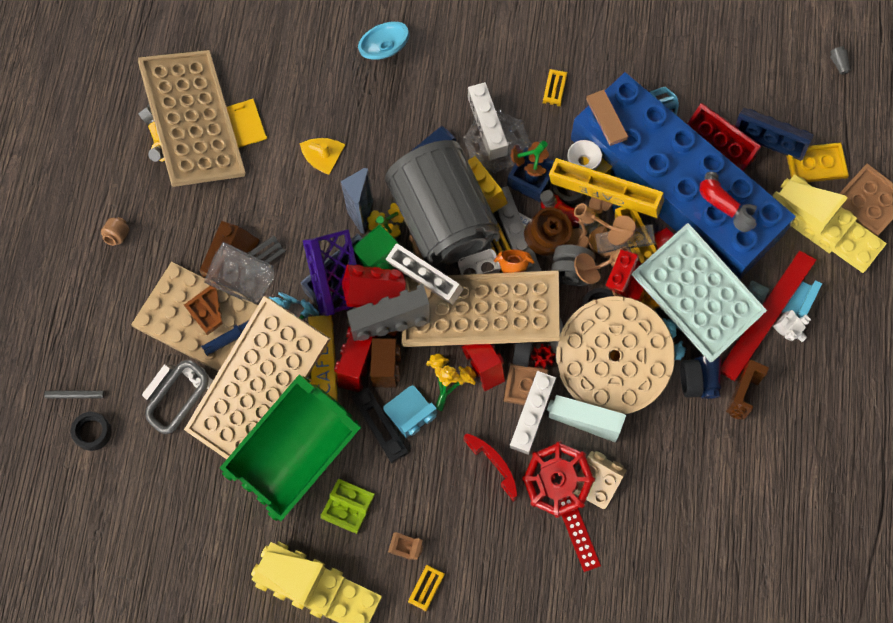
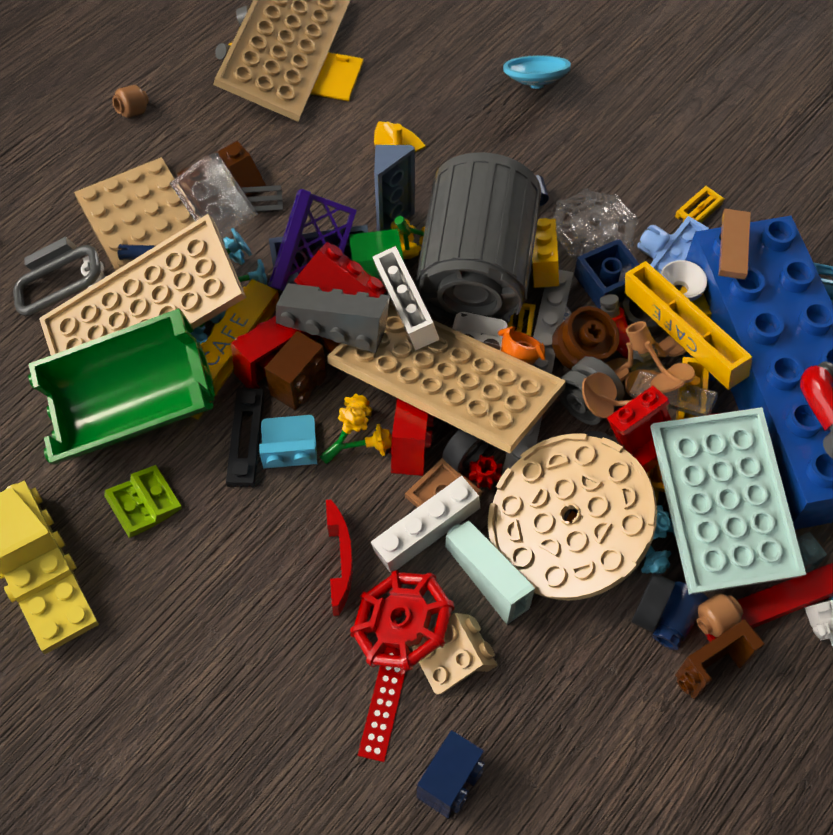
camera: 30 degrees right, 10 degrees down
(206, 309) = (154, 214): dark orange wing -> none
(405, 546) = (168, 584): medium nougat bracket -> none
(418, 603) = (161, 658): yellow tile -> none
(487, 121) = (594, 193): white brick -> none
(536, 154) = (627, 248): dark orange plant -> none
(558, 131) = (667, 247): none -> light blue plate
(646, 549) = (449, 775): none -> dark blue brick
(732, 363) = (719, 614): none -> medium nougat head

